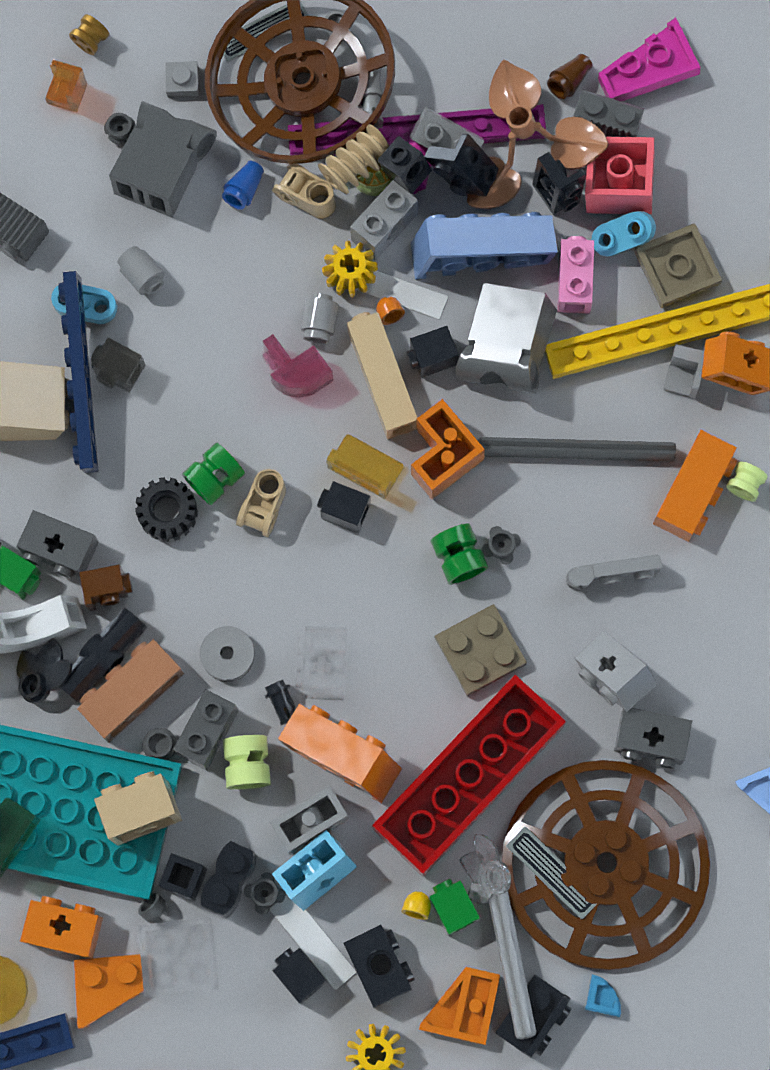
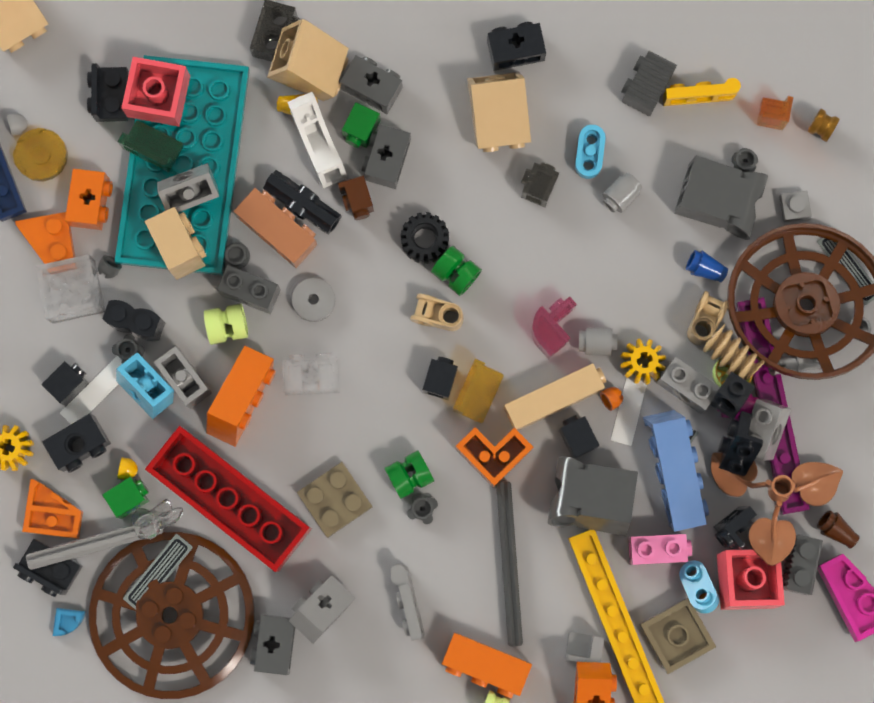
camera: 80 degrees right, 5 degrees up
(30, 166) = (701, 93): none -> yellow plate
(42, 672) = (284, 158): black plate -> none
(69, 789) = (188, 188): none -> light grey brick
(80, 386) = (539, 151): dark blue plate -> none
(183, 877) = (131, 285): black brick -> none
(280, 700) = (278, 346): black pin -> none

